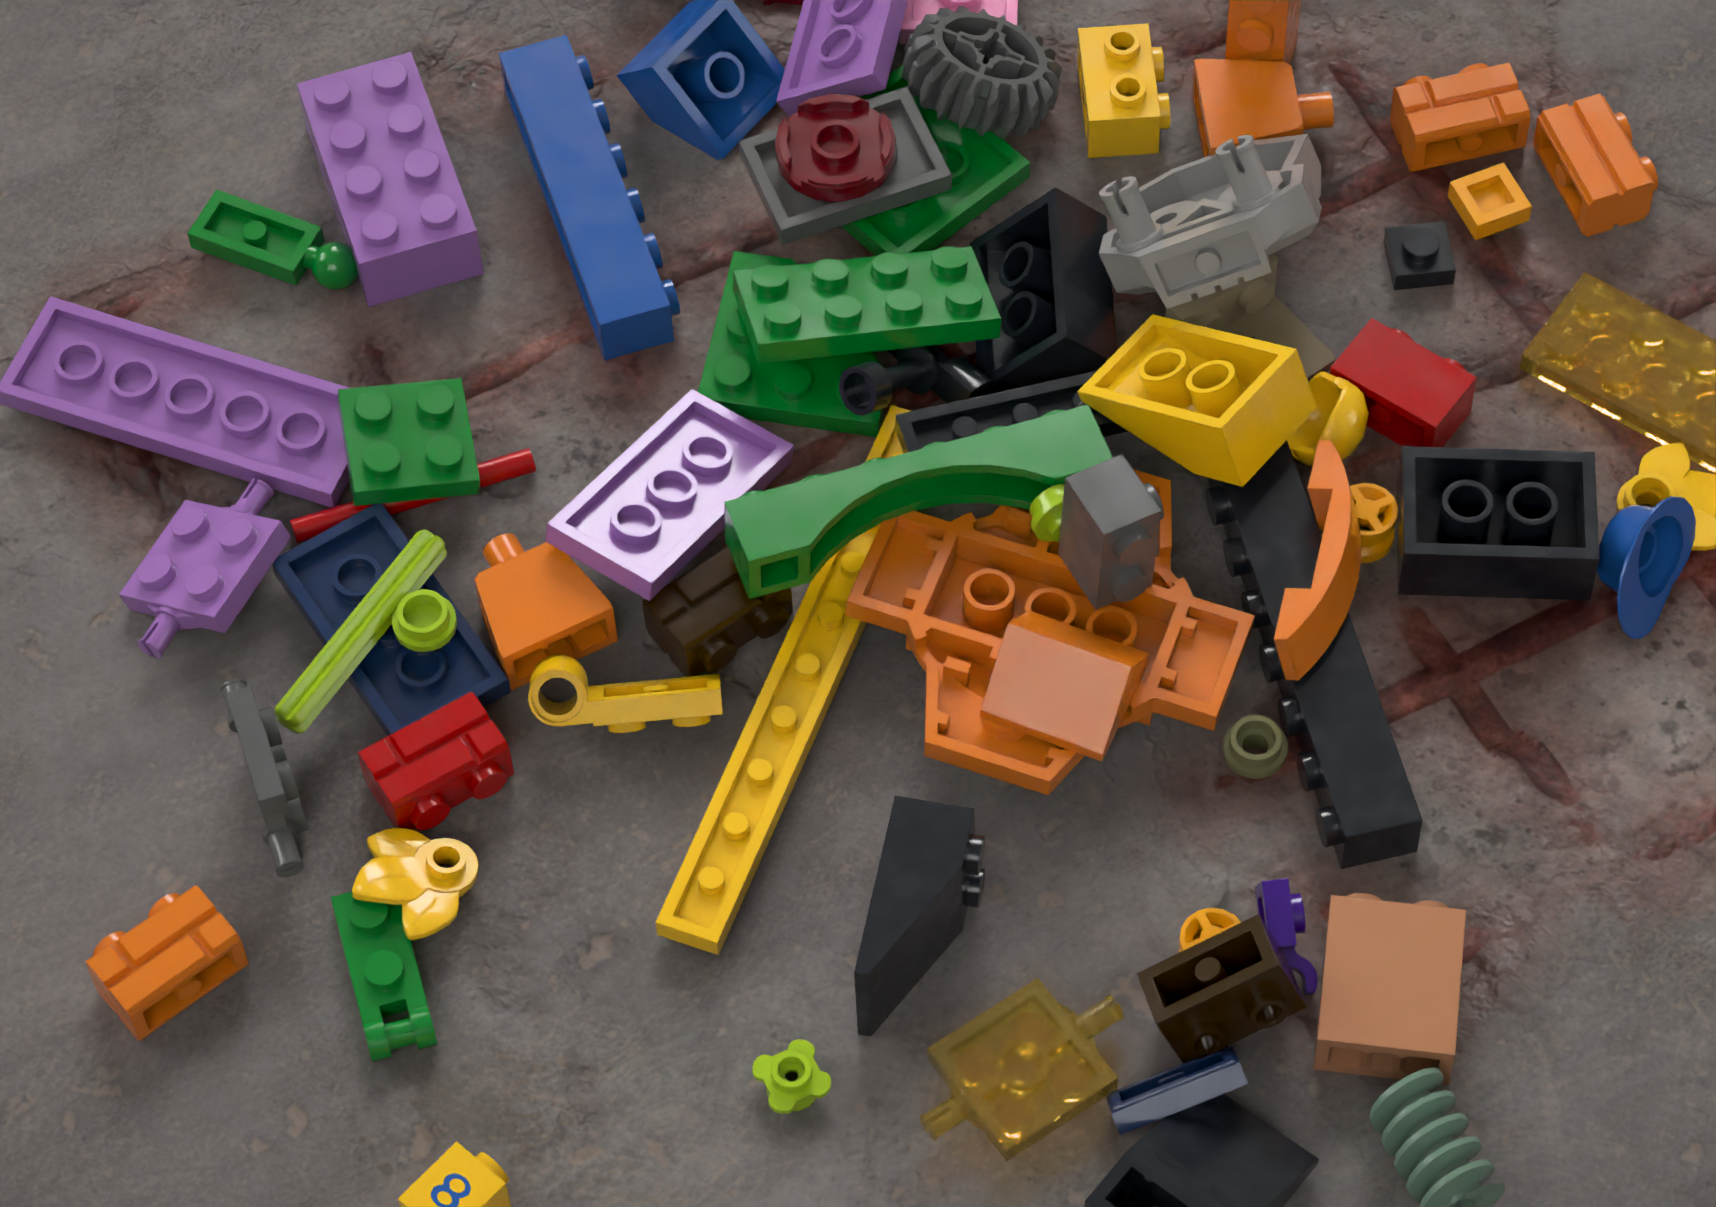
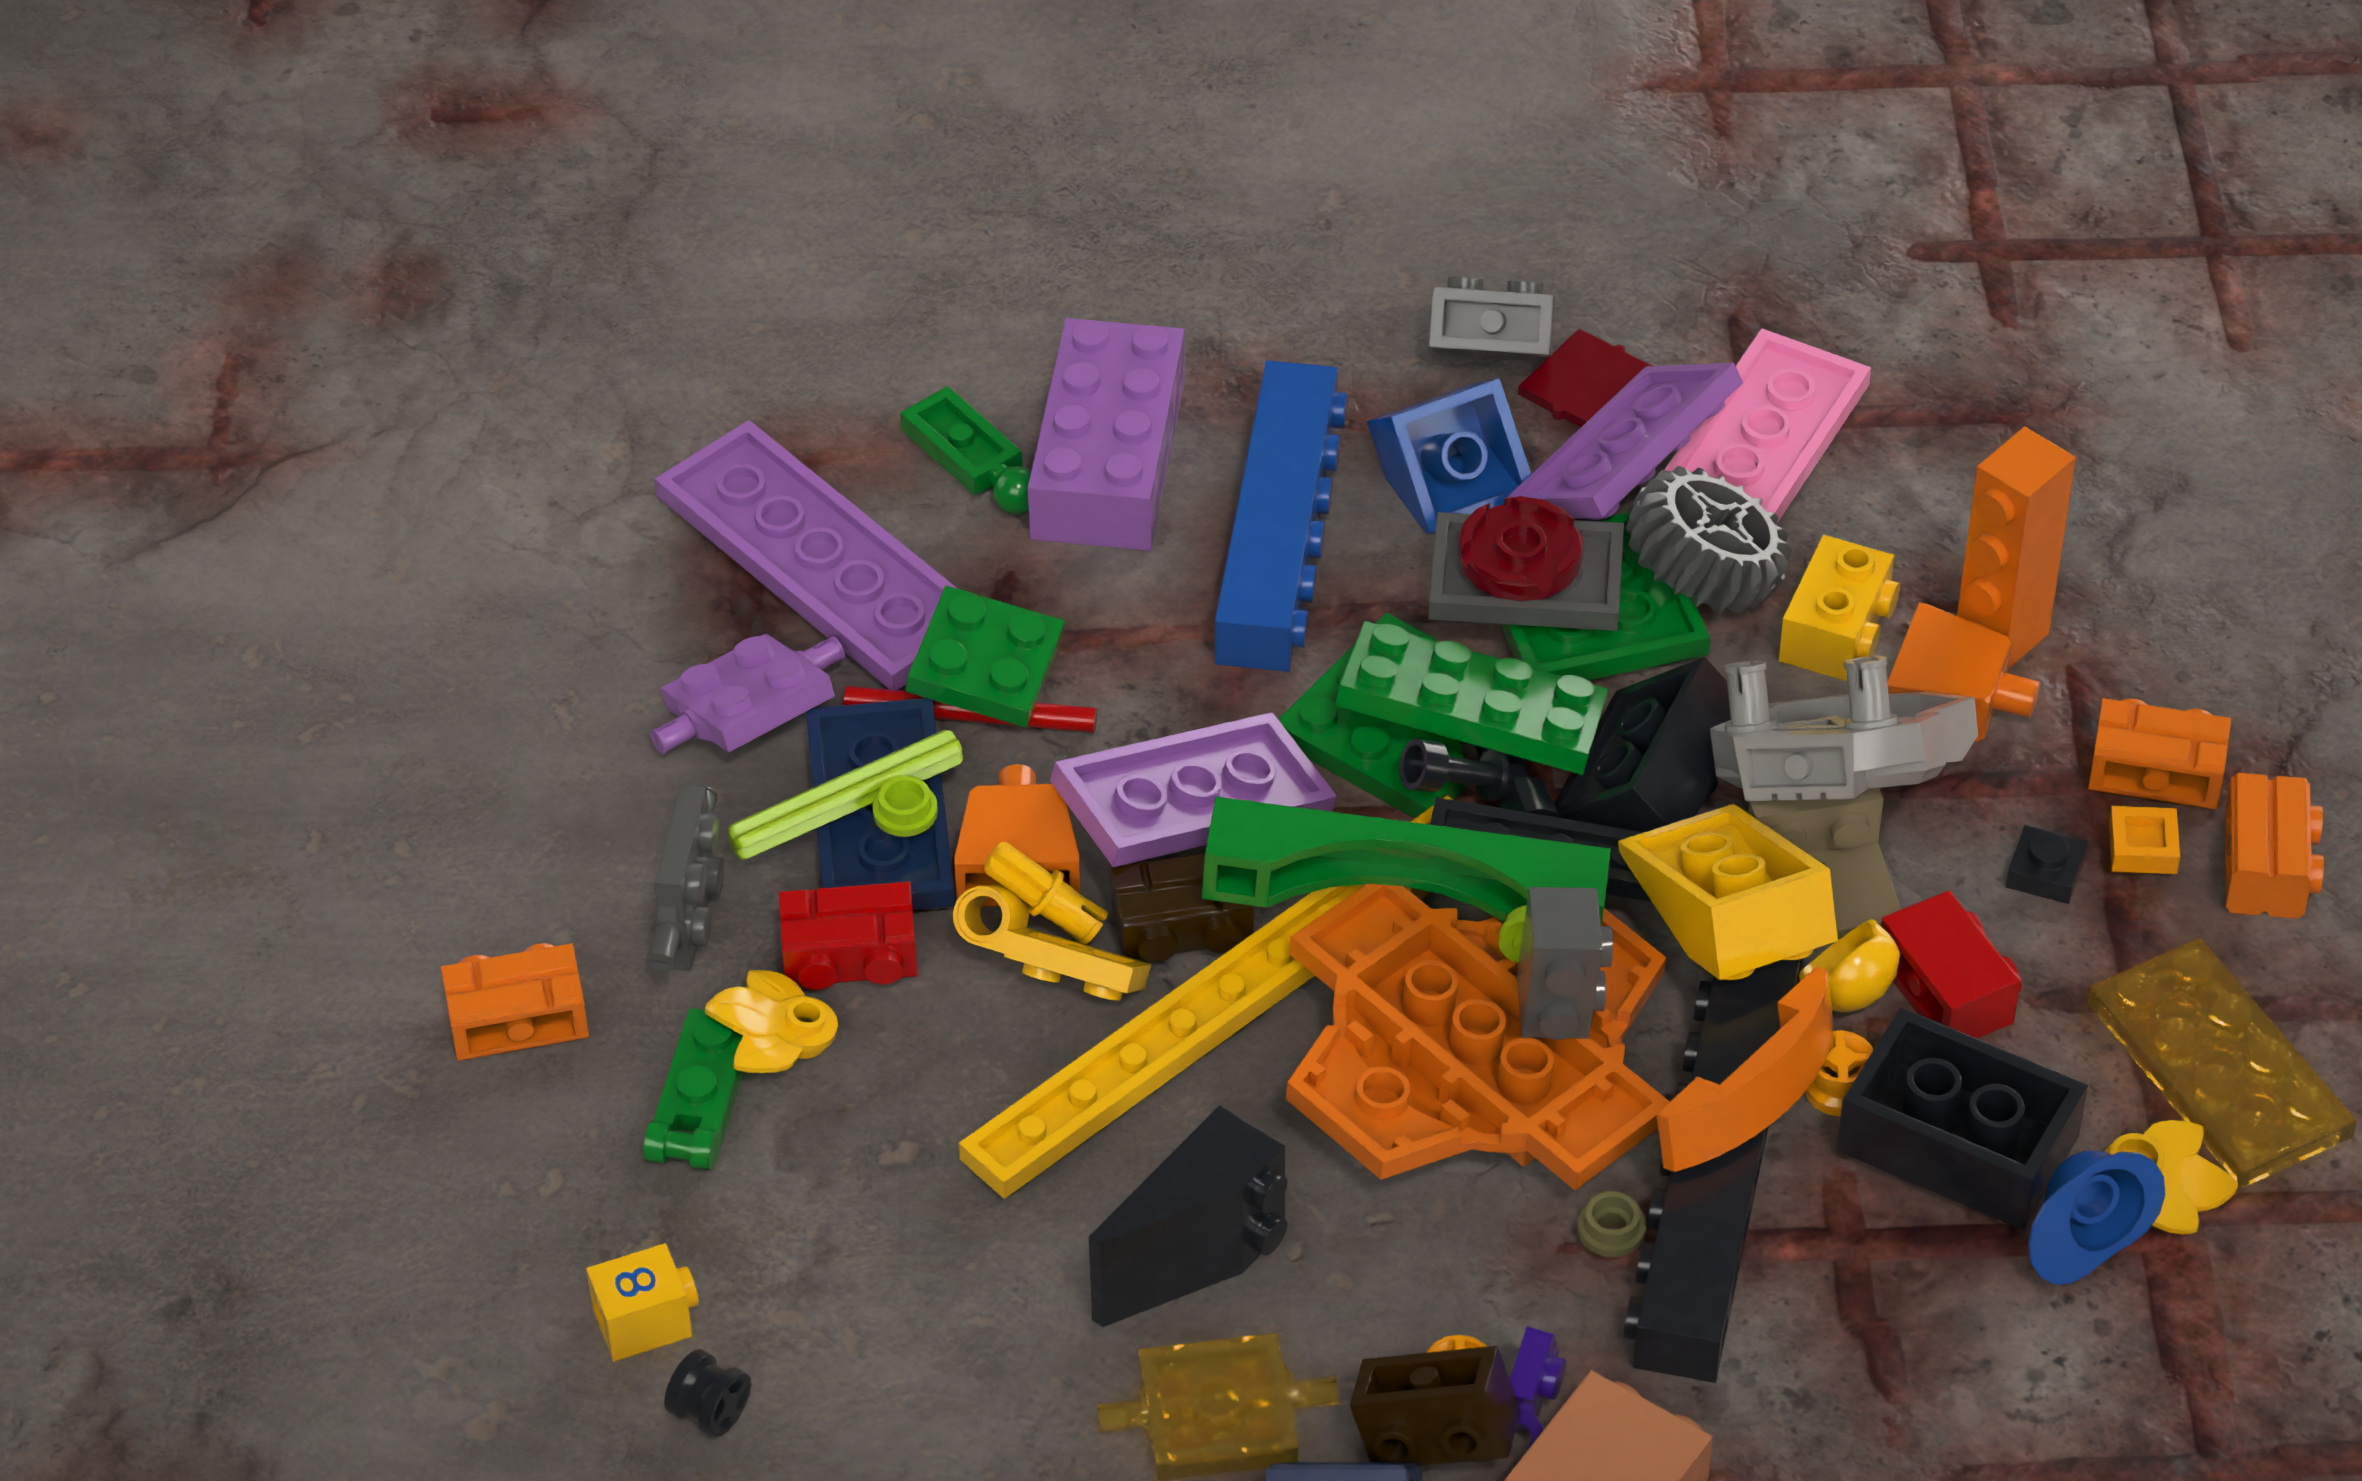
camera: 25 degrees right, 10 degrees down
(596, 649) = (1045, 892): none -> yellow axle
(795, 1095) = (1009, 1341): lime plate -> none
(1062, 684) = (1443, 1080): orange slope -> none

